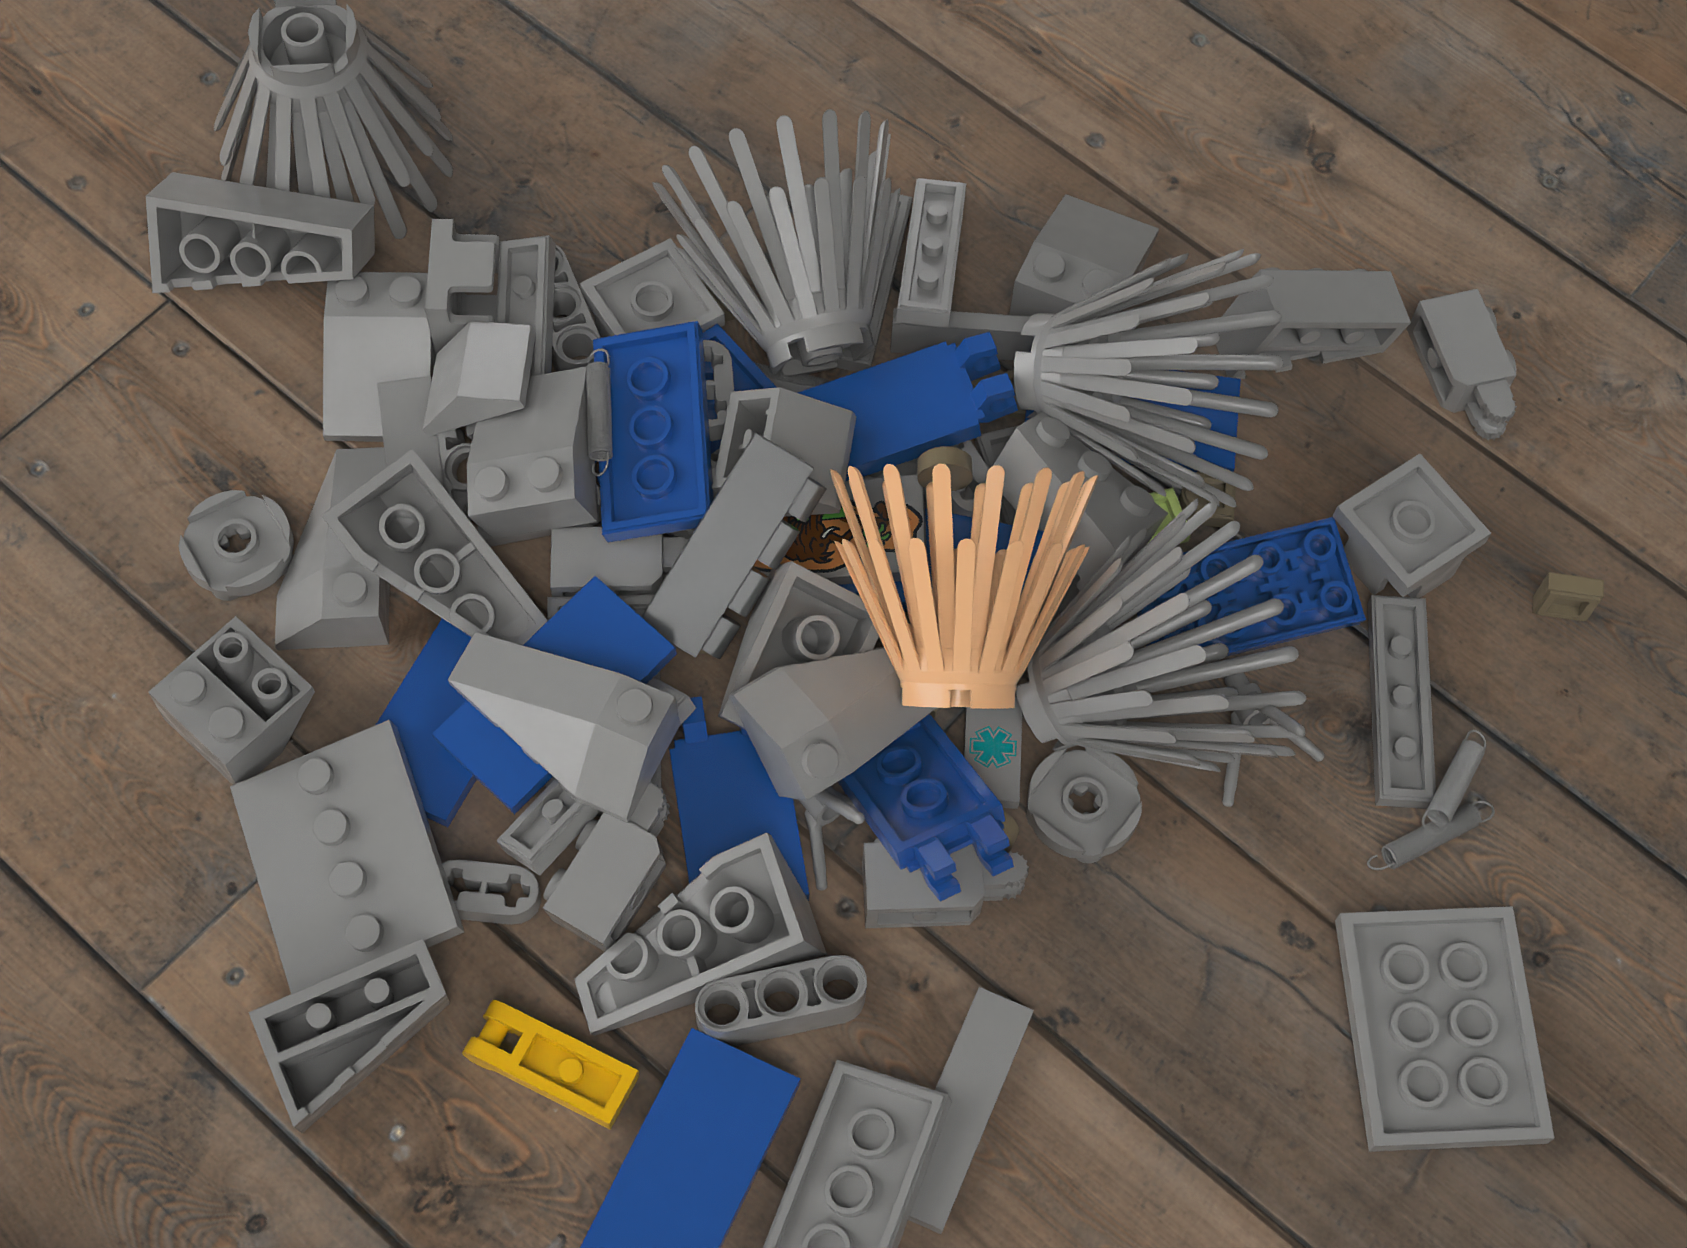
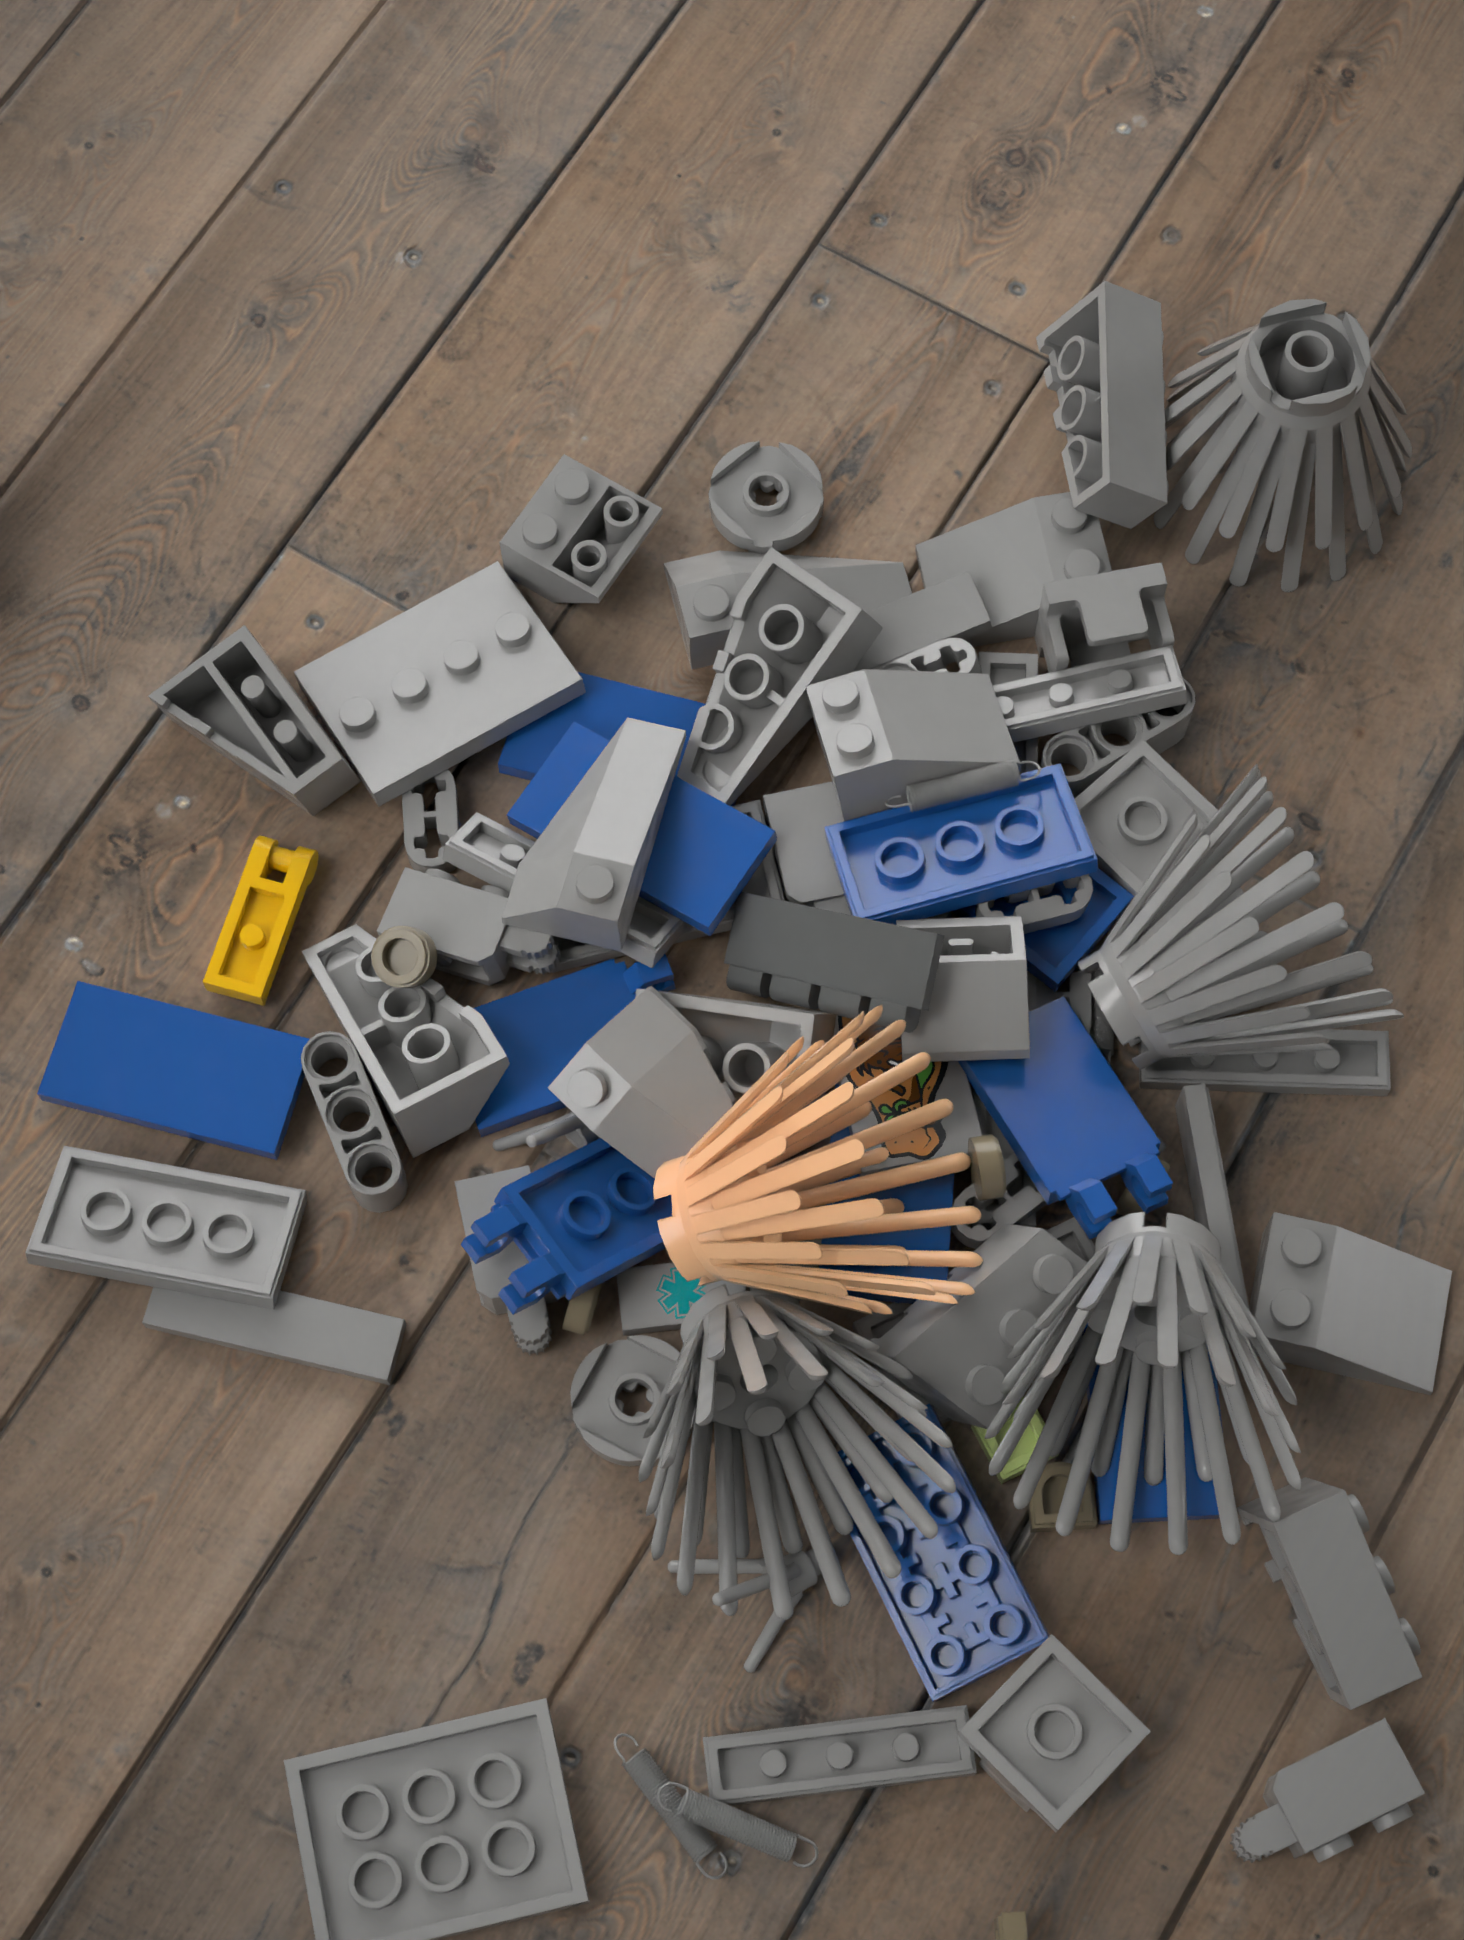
camera: 85 degrees right, 5 degrees up
(479, 375) = (989, 664): light grey slope -> none
(638, 918) = (404, 956): none -> dark tan tile
(931, 253) = (1304, 1118): light grey tile -> none

